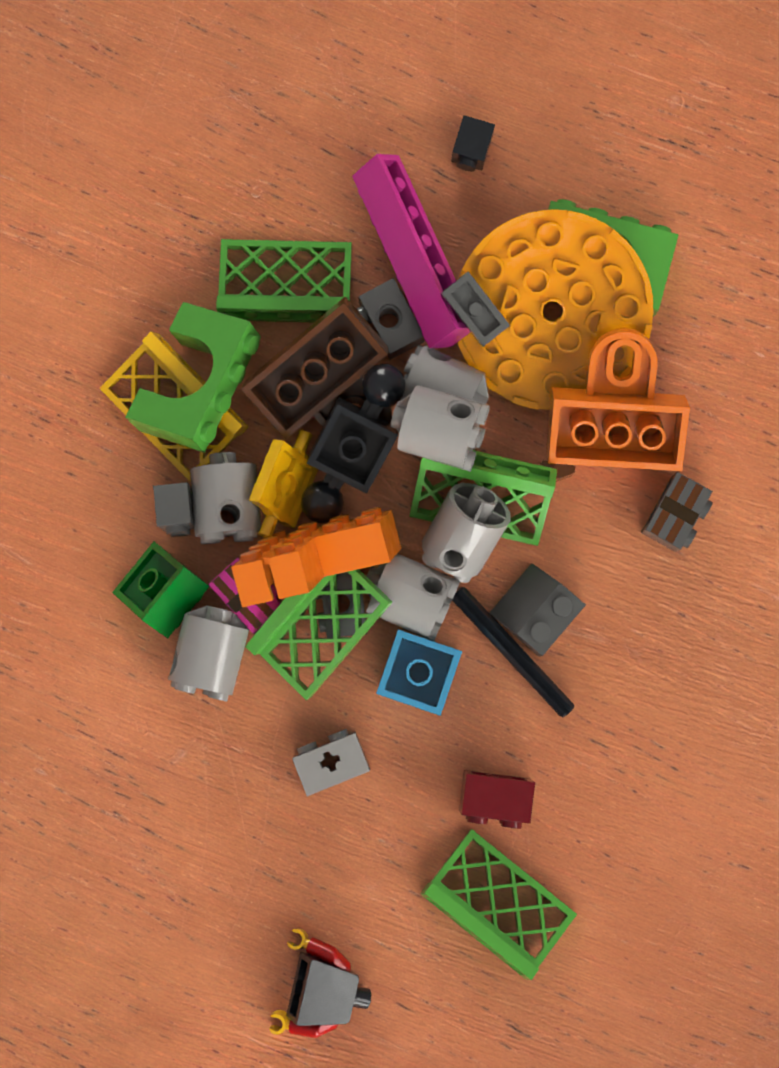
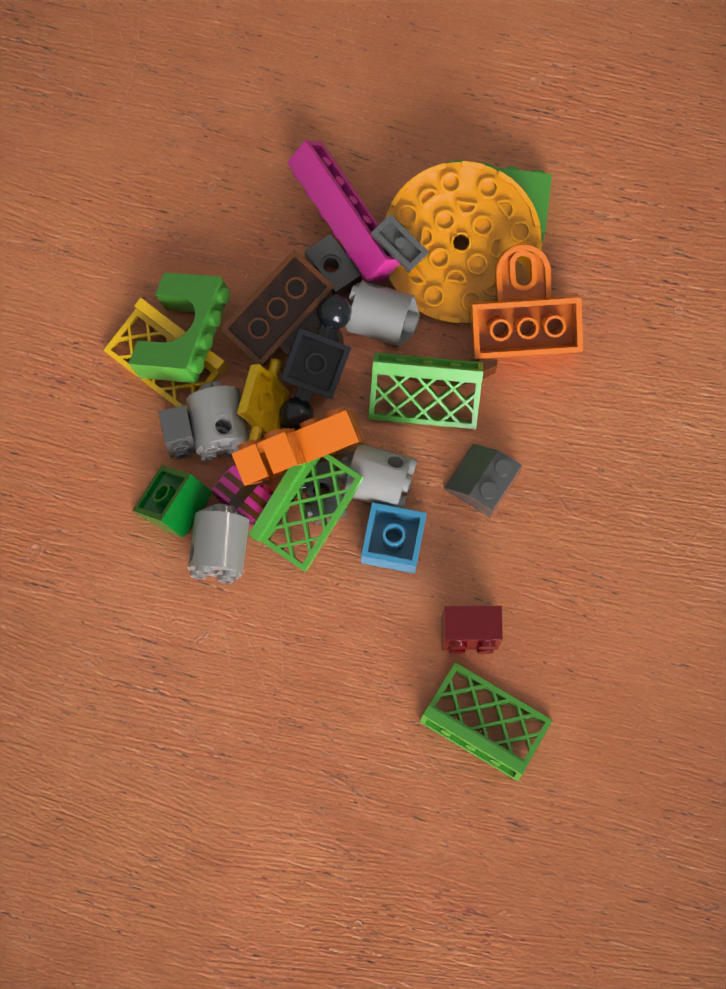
camera: 10 degrees left, 10 degrees down
(277, 306) = (244, 267): bright green fence -> none
(316, 777) = (346, 621): light grey brick -> none
(321, 991) = (348, 809): torso -> none
(440, 426) = (384, 334): light grey cylinder -> none
(465, 531) = (416, 418): light grey cylinder -> none
(472, 144) = (379, 128): black brick -> none
(513, 652) = (468, 515): black axle -> none
(677, 512) = (584, 388): brick -> none

